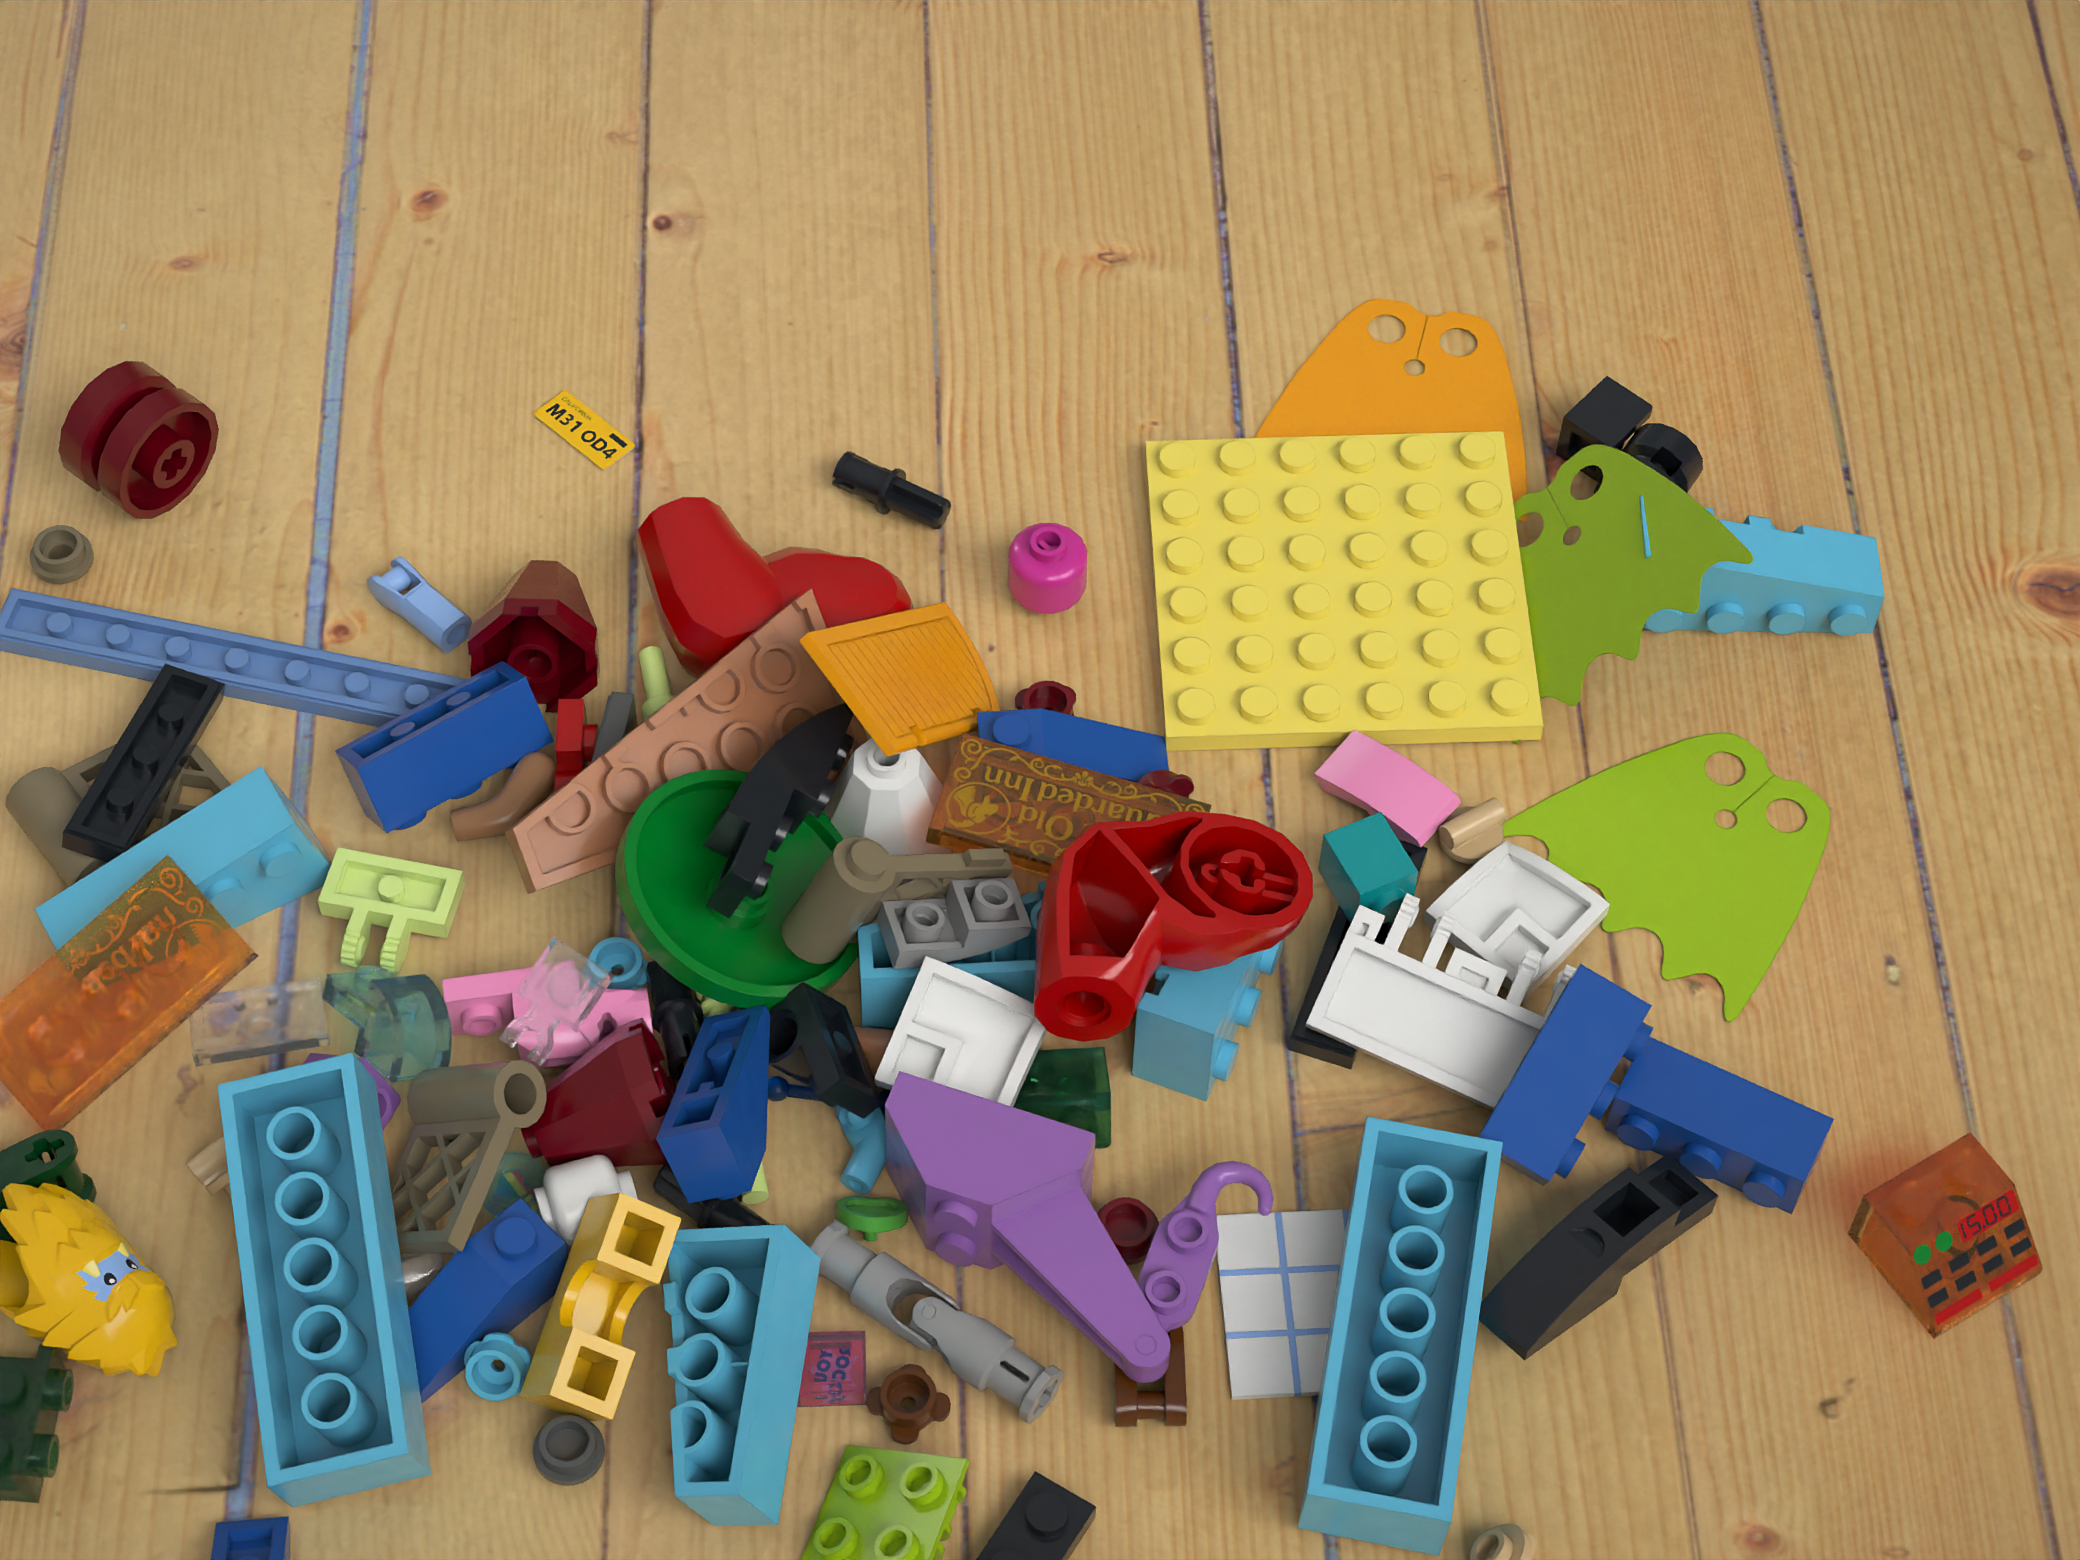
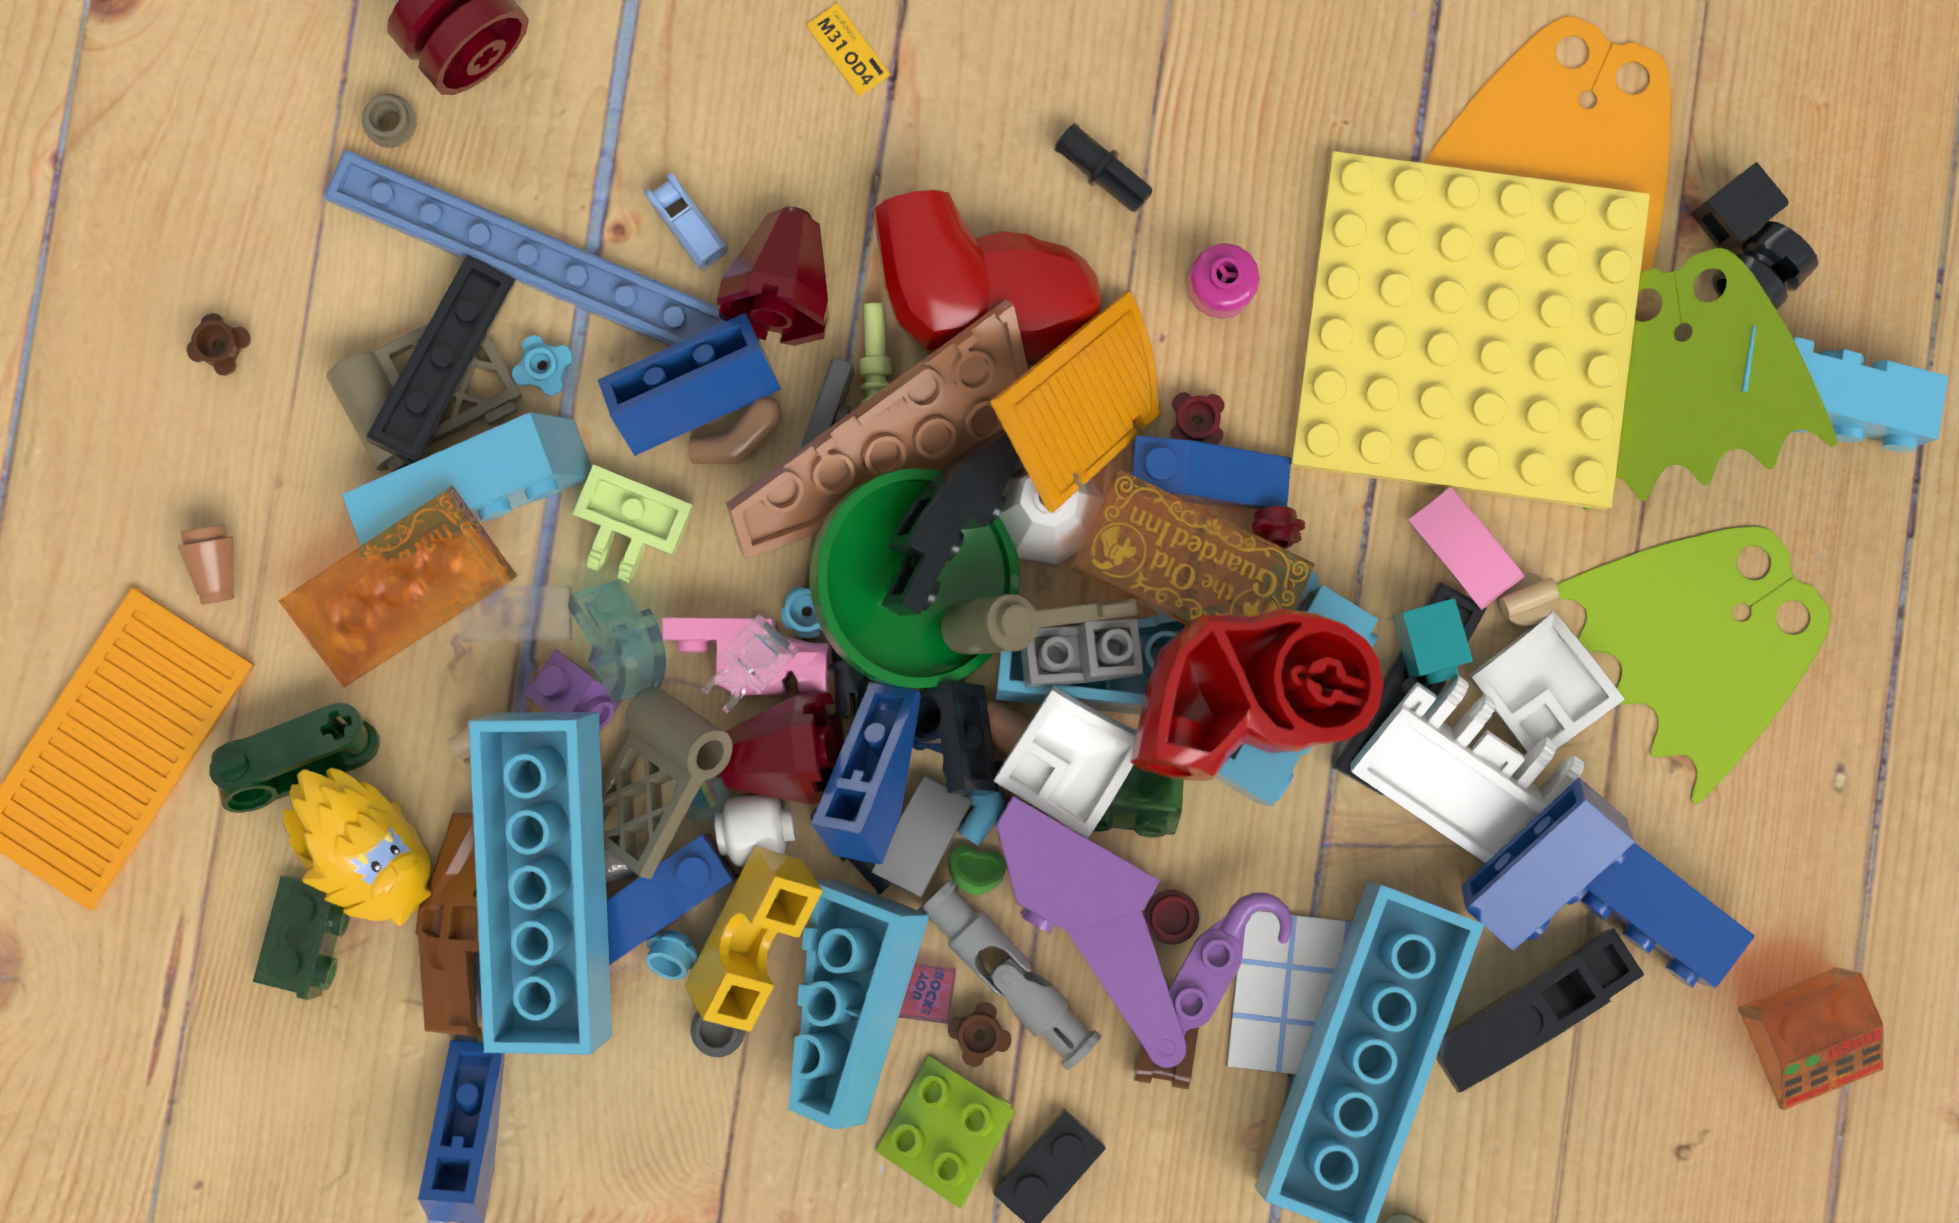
camera: 10 degrees right, 30 degrees up
(210, 1380) = (450, 935): none -> dark orange plate
(256, 751) = (552, 377): none -> medium azure plate
(574, 740) = (798, 394): red plate -> none
(796, 1178) = (923, 836): none -> light grey slope

